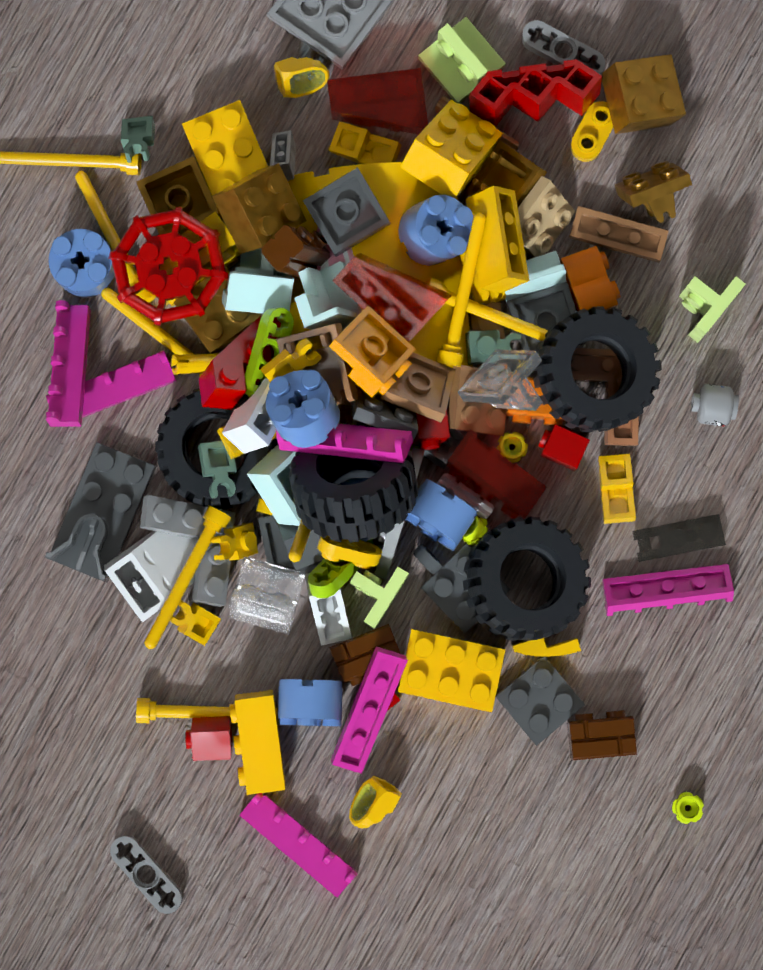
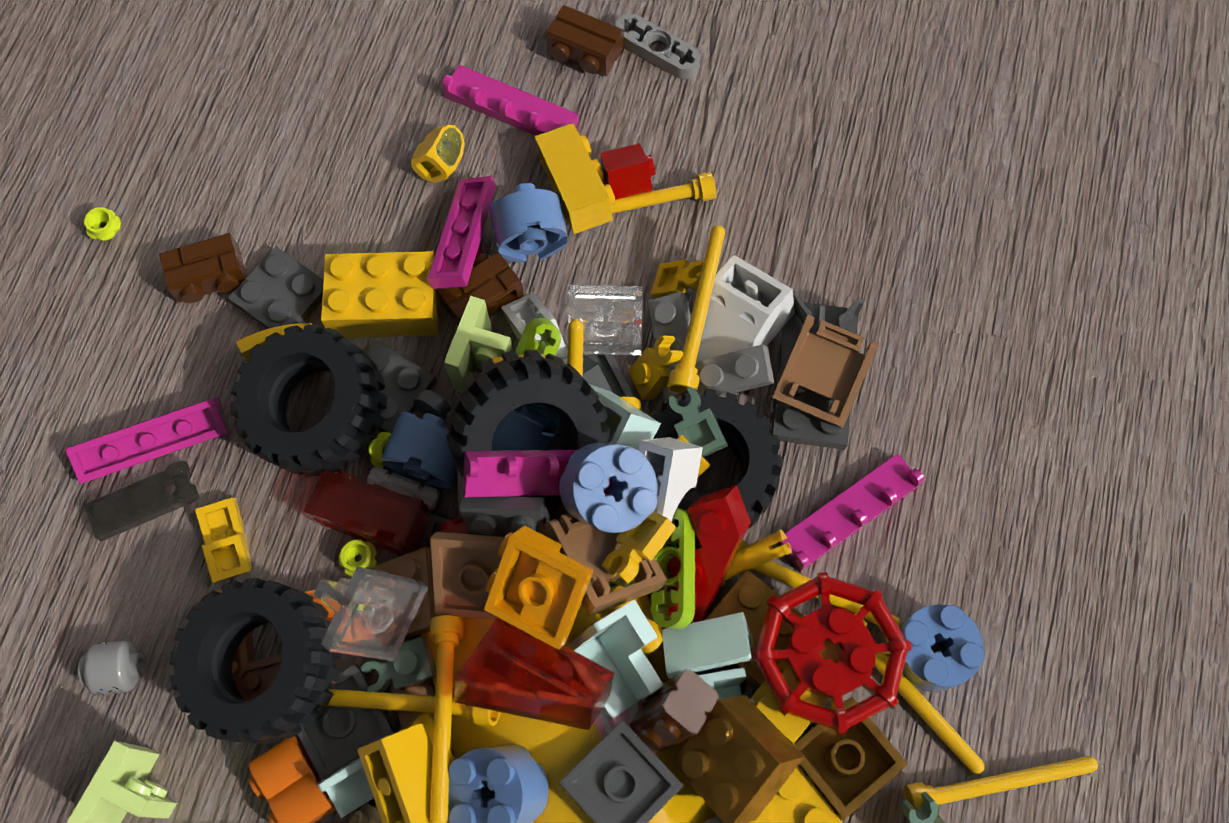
camera: 165 degrees right, 15 degrees down
(68, 365) = (910, 520): dark pink hinge -> none
(93, 503) = (826, 365): none -> medium nougat container
(213, 891) = (584, 41): none -> reddish brown brick
(563, 447) = (293, 566): red brick -> none

